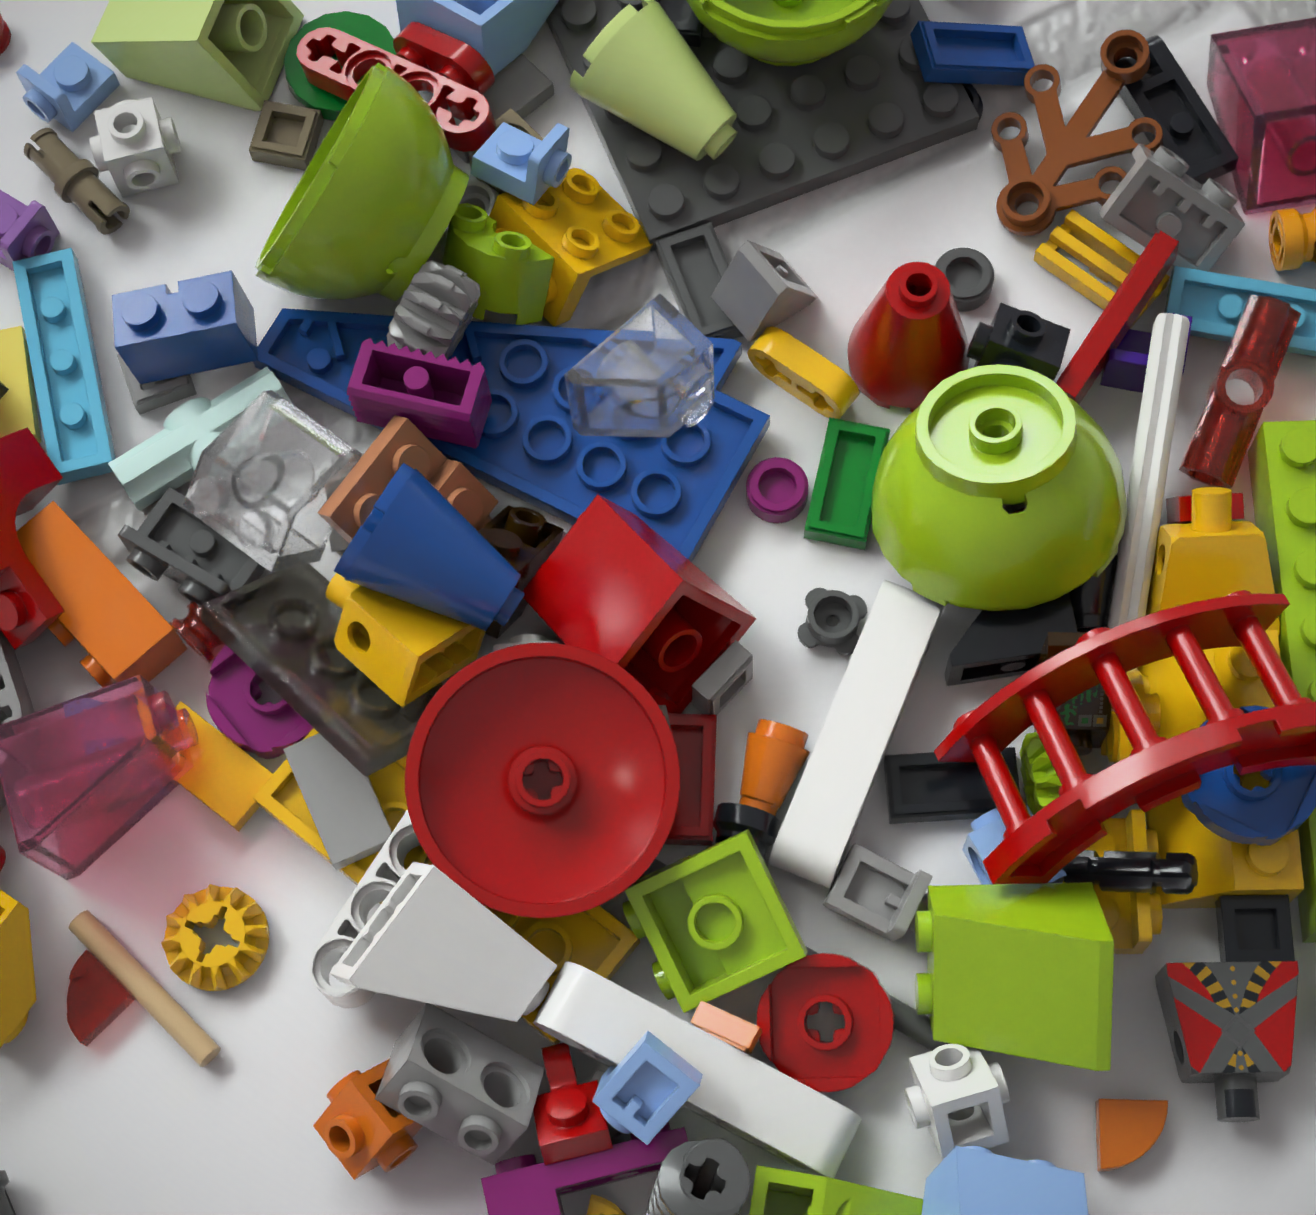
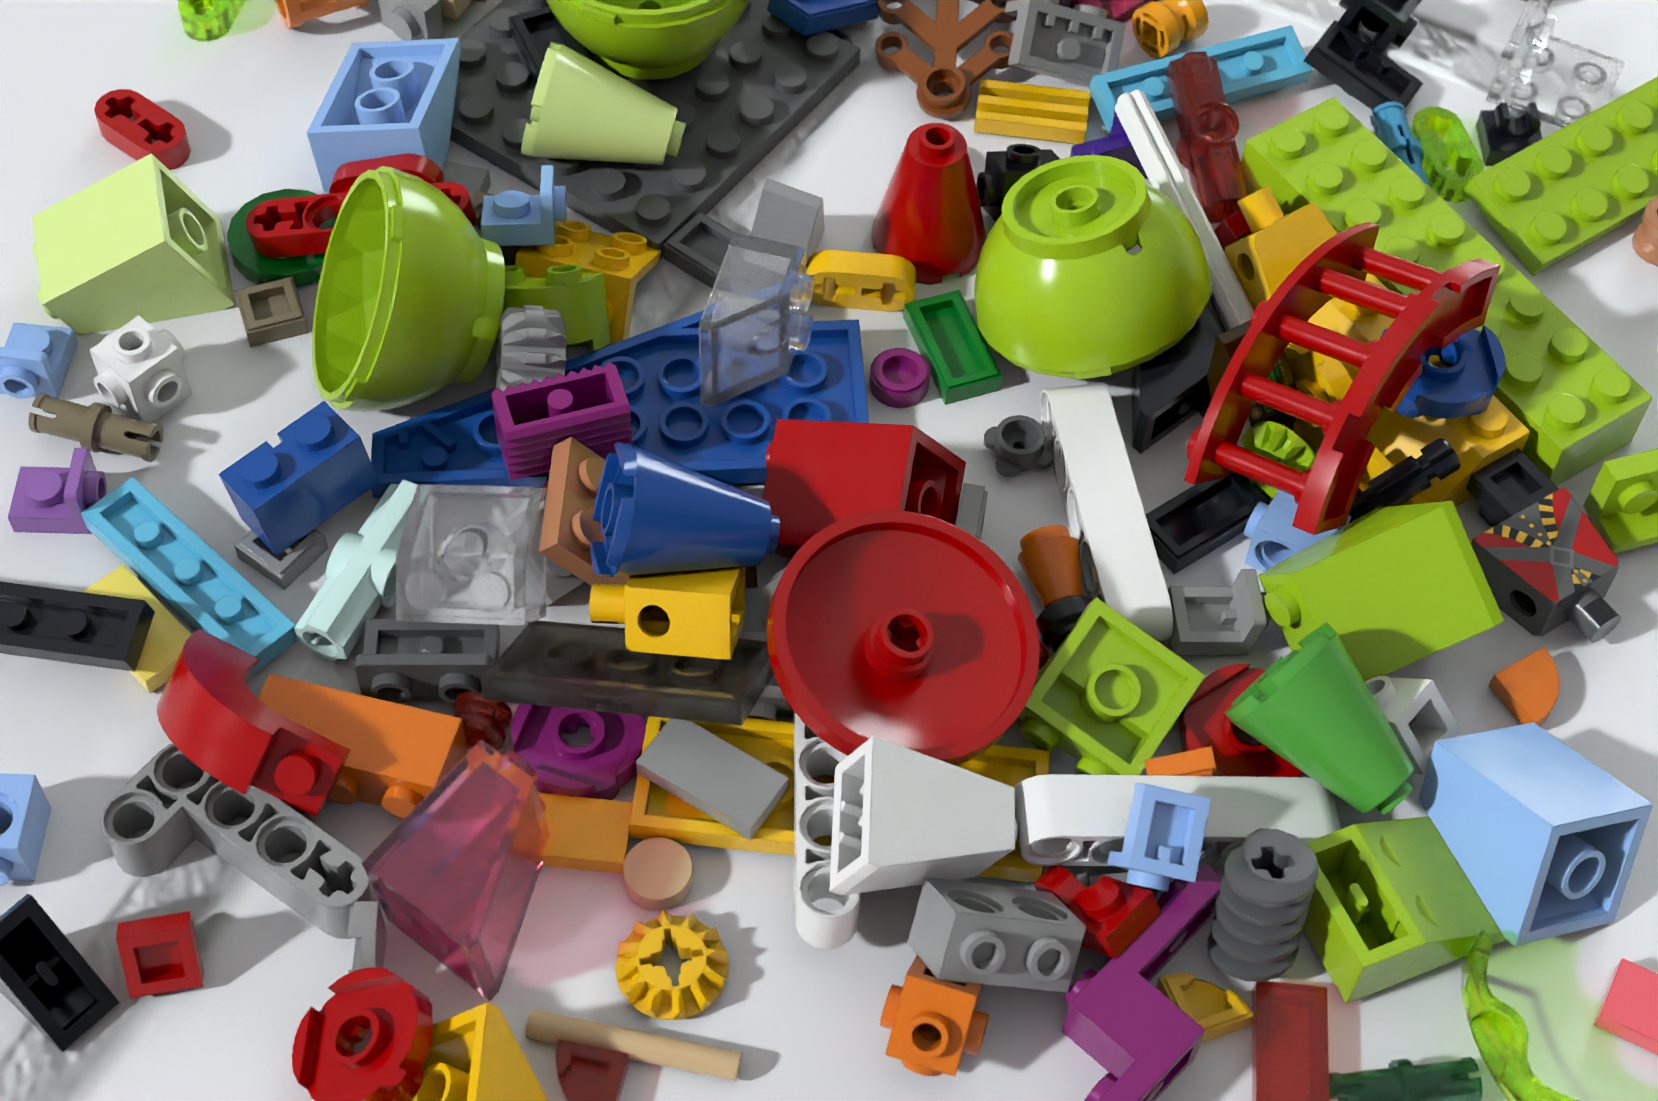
camera: 40 degrees left, 15 degrees down
(257, 850) = (658, 873): none -> tan tile
(869, 1070) = (1327, 723): none -> bright green cone
(1118, 316) = (1081, 100): red tile -> none

